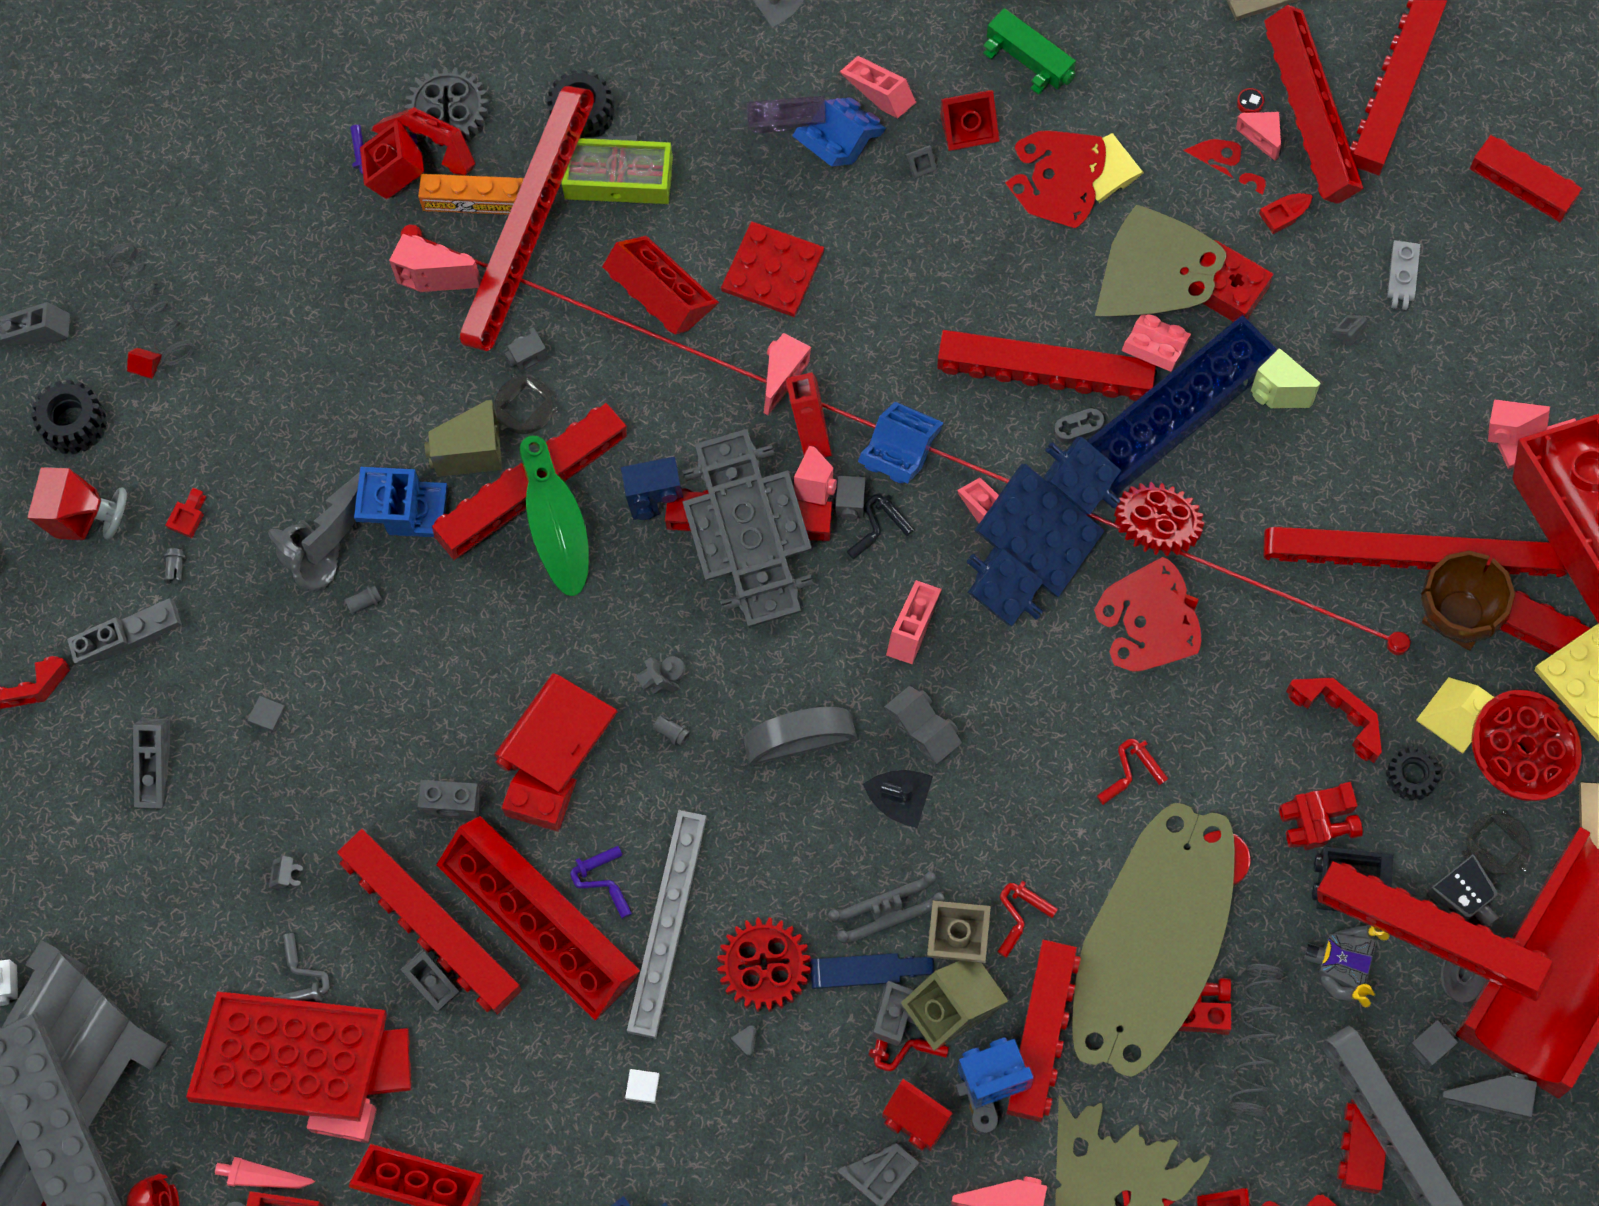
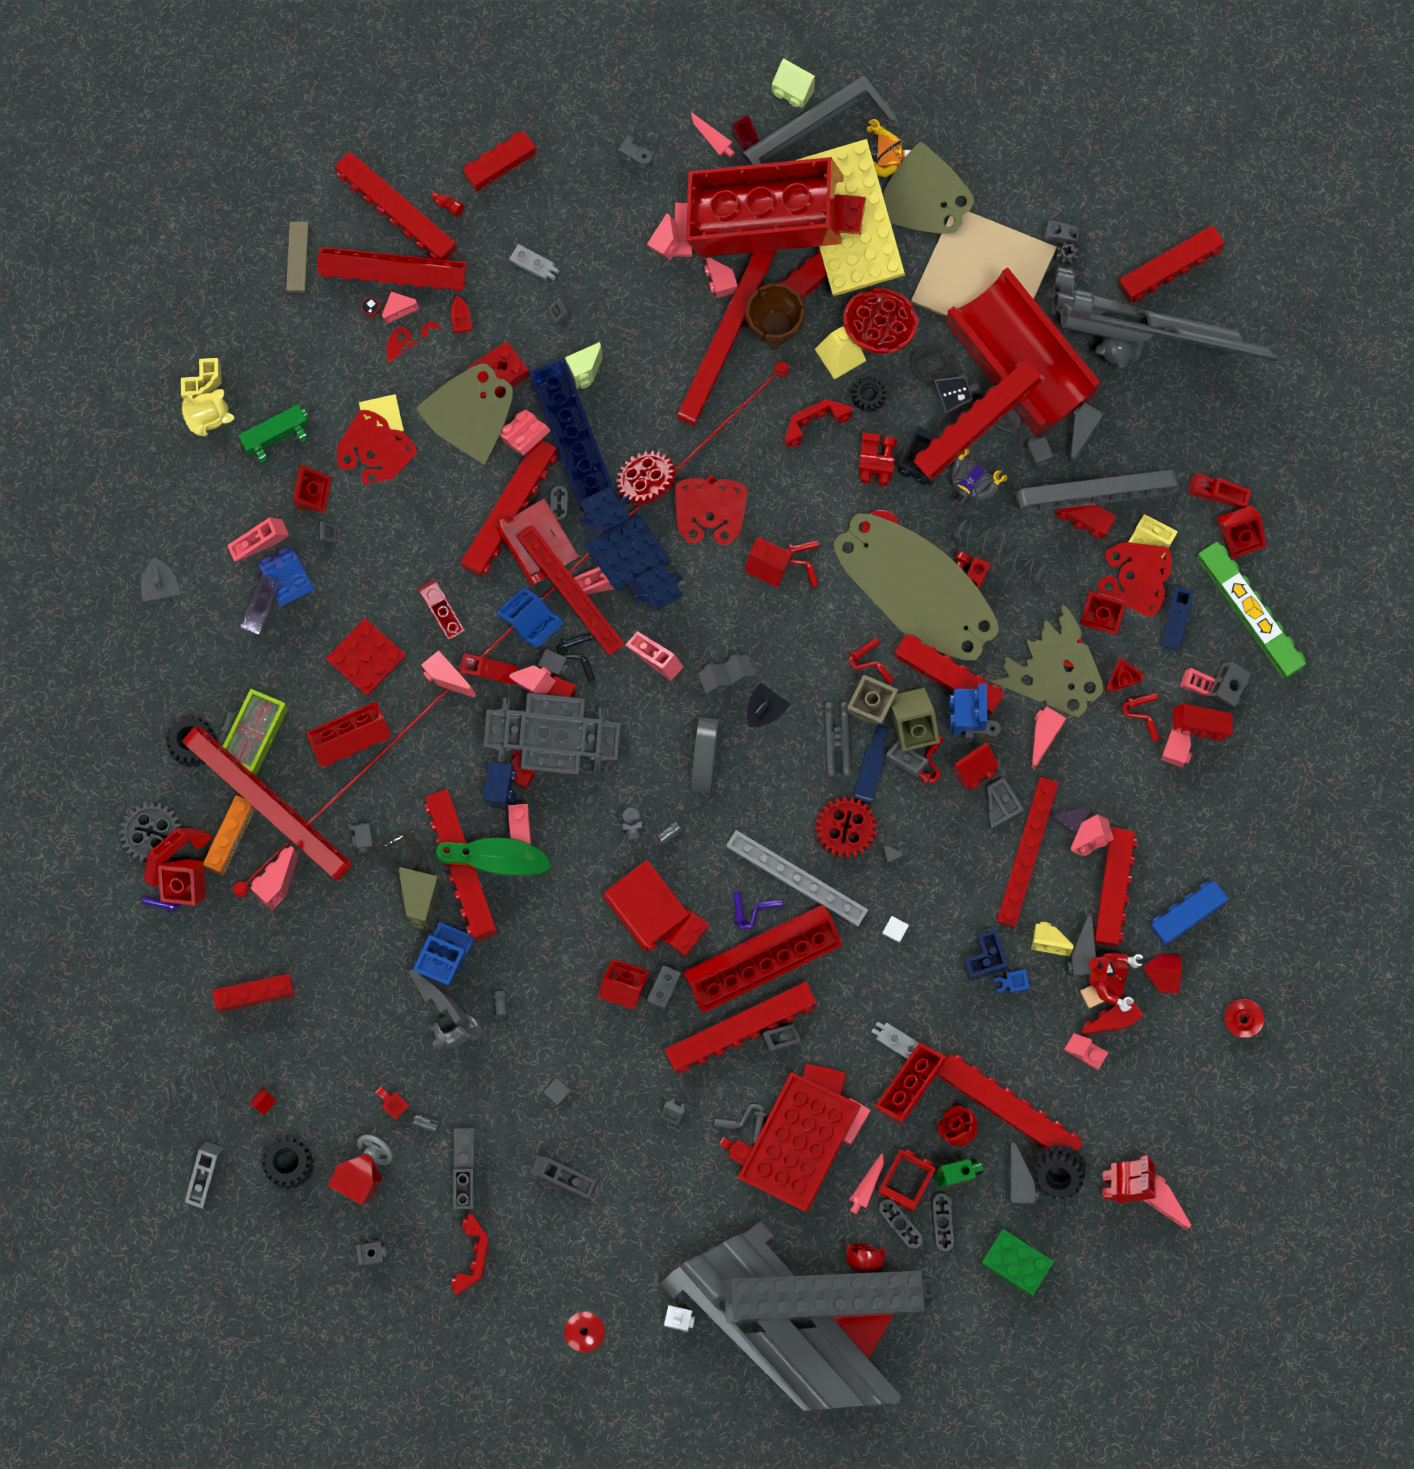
camera: 70 degrees left, 5 degrees up
(257, 981) = (739, 1151): none -> red plate
(277, 297) = (253, 993): none -> red brick
(440, 744) = (623, 984): none -> red slope
(482, 1142) = (895, 1039): none -> light grey hinge
(612, 534) = (519, 823): none -> coral slope
(872, 331) = (440, 609): none -> red slope
(959, 480) = (570, 590): none -> red plate
(1006, 411) = (550, 530): none -> red door
(1109, 722) = (768, 561): none -> red slope
(1435, 149) = (455, 207): none -> red piece
(1493, 515) = (722, 278): none -> coral slope

